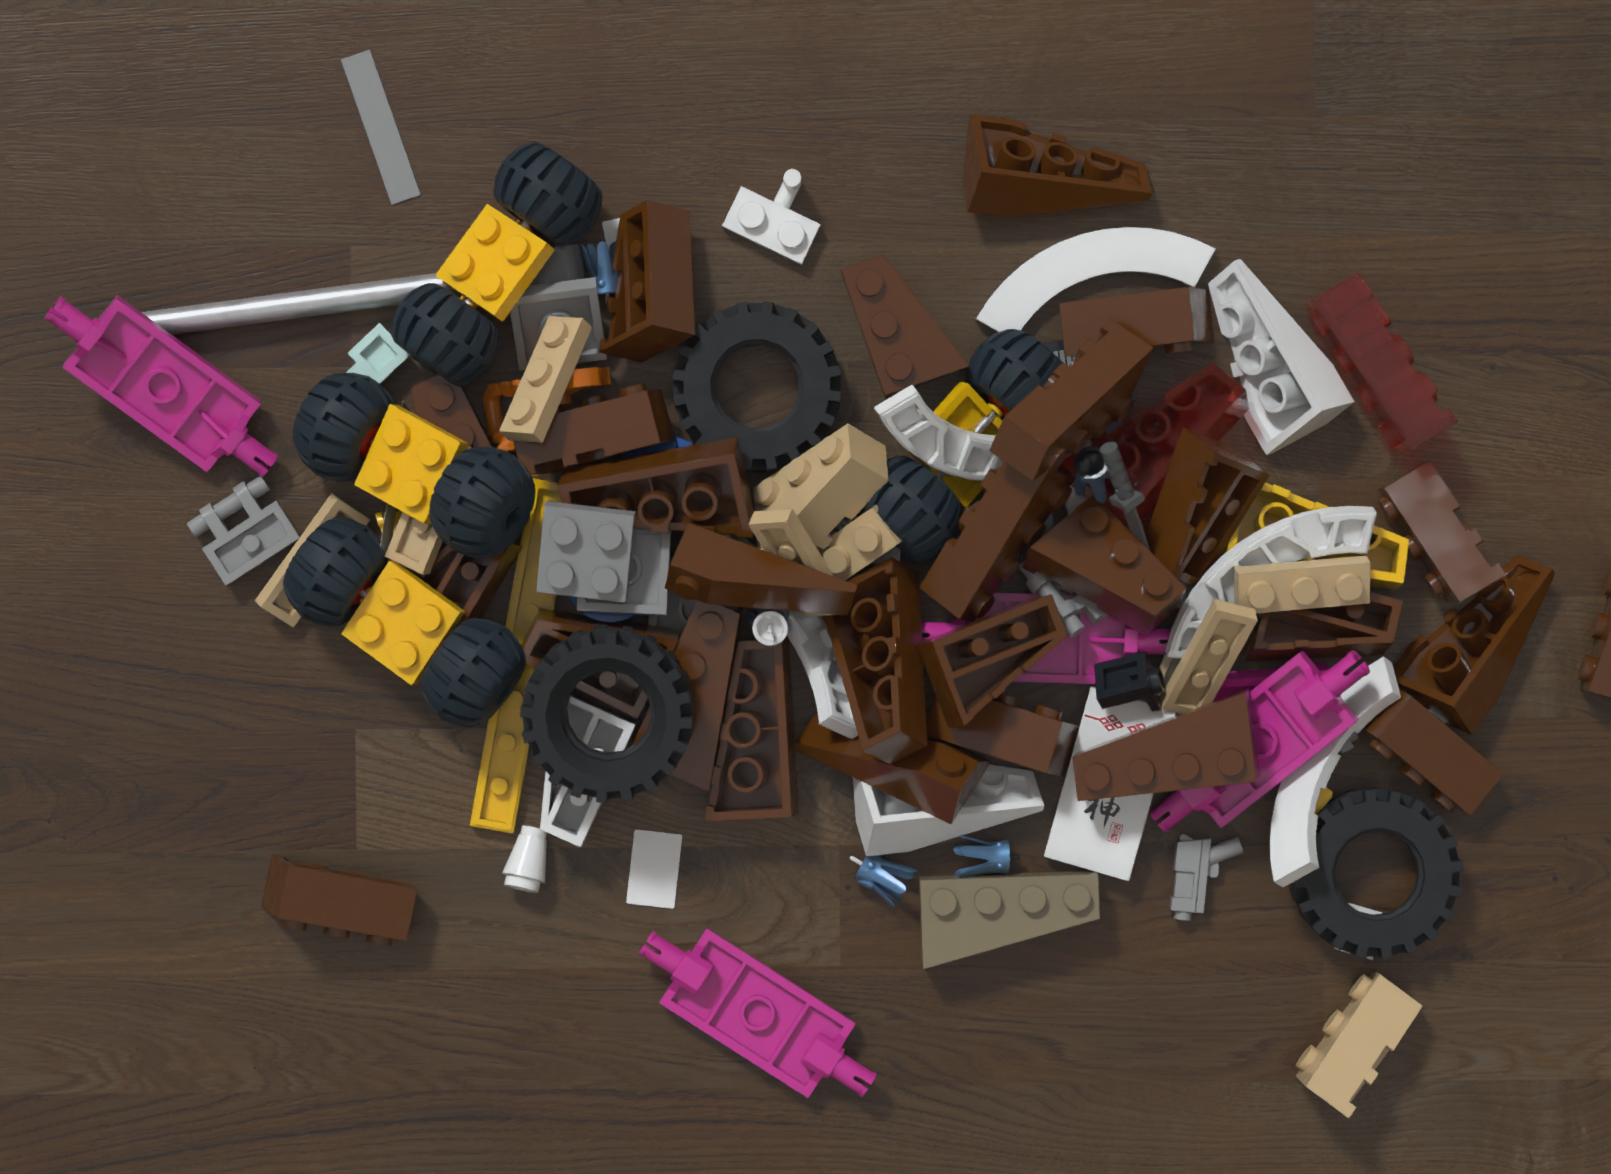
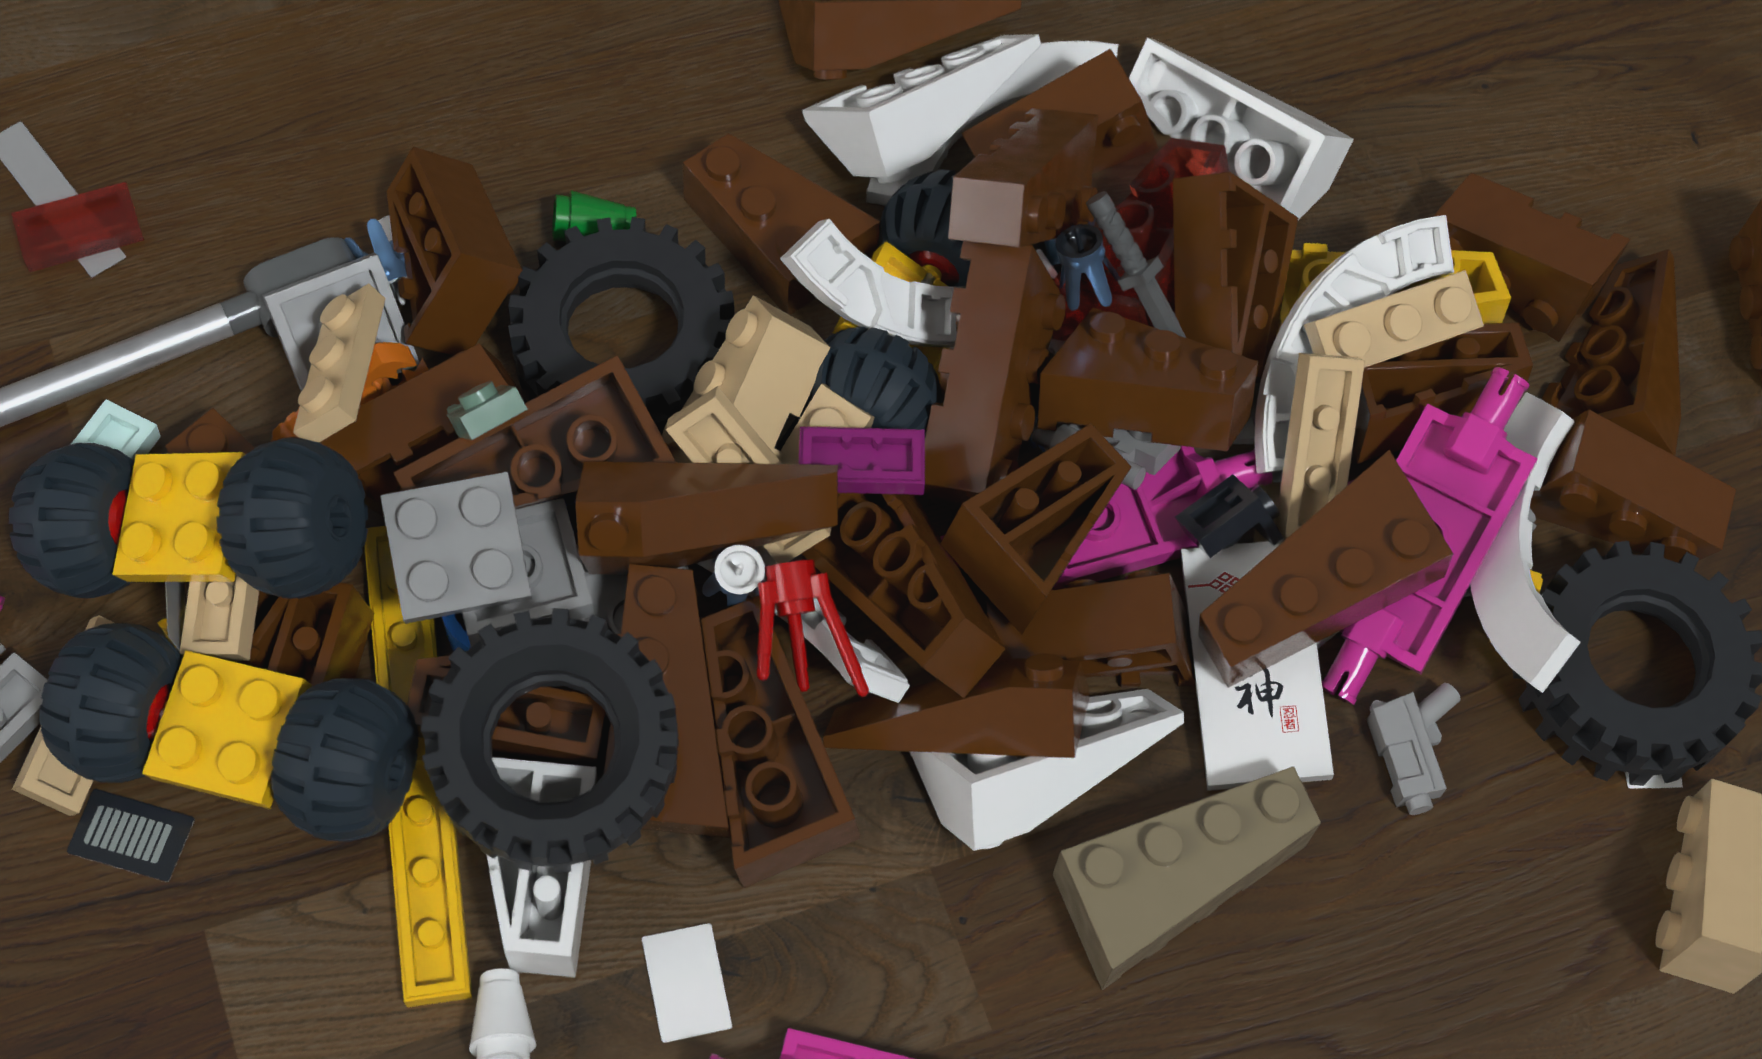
camera: 25 degrees left, 25 degrees down
(323, 650) = (130, 835): none -> black sticker
(391, 163) = (77, 226): none -> clear red tile
(496, 263) = (193, 351): black plate -> none
(630, 467) = (484, 409): none -> sand green plate
(763, 279) = (584, 210): none -> green cone
(772, 222) = (581, 161): white plate -> none
(802, 652) = (793, 591): none -> red plant
(875, 875) = (991, 870): flat silver piece -> none
(881, 576) = (868, 458): none -> magenta plate
(995, 852) = (1129, 804): flat silver piece -> none
(1027, 272) = (906, 122): none -> white wedge
(1379, 365) = (1398, 118): clear red wedge -> none

